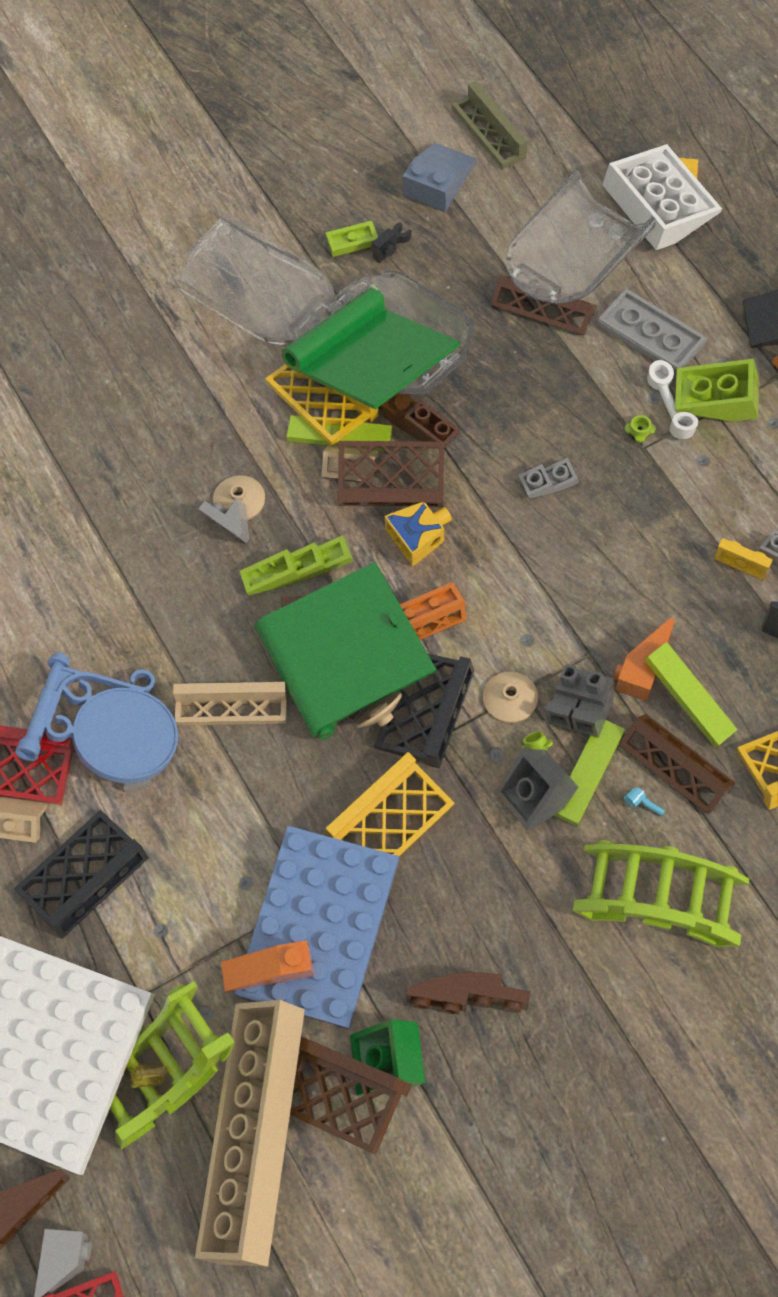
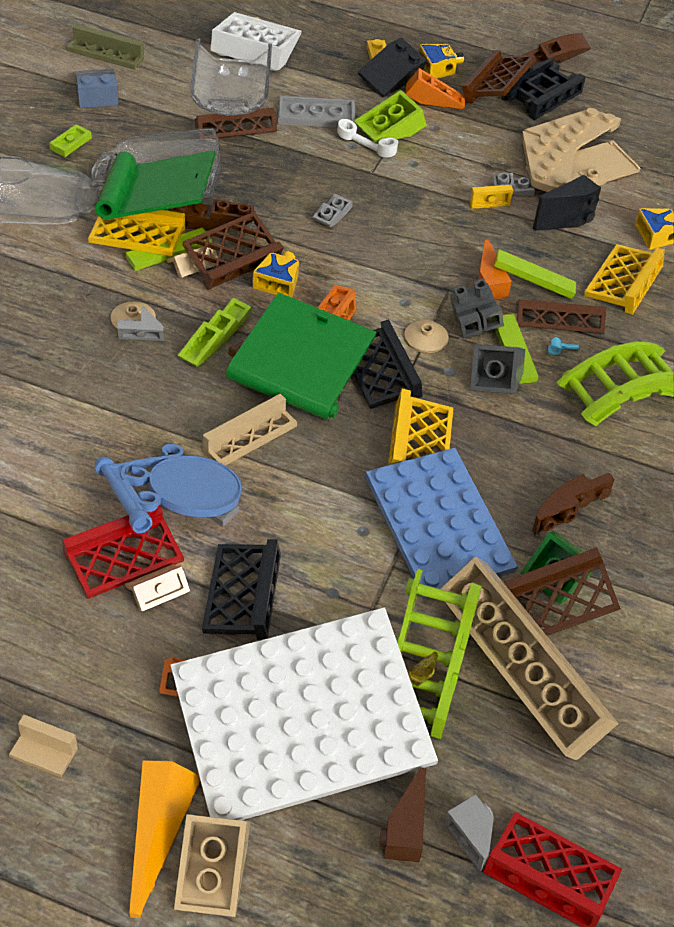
camera: 45 degrees left, 15 degrees down
(268, 966) = (441, 551): orange slope -> none
(379, 712) = (359, 379): tan dish -> none
(385, 244) = (99, 132): black plate -> none
(537, 740) = (468, 347): lime plate -> none
(643, 422) = (361, 161): lime plate -> none

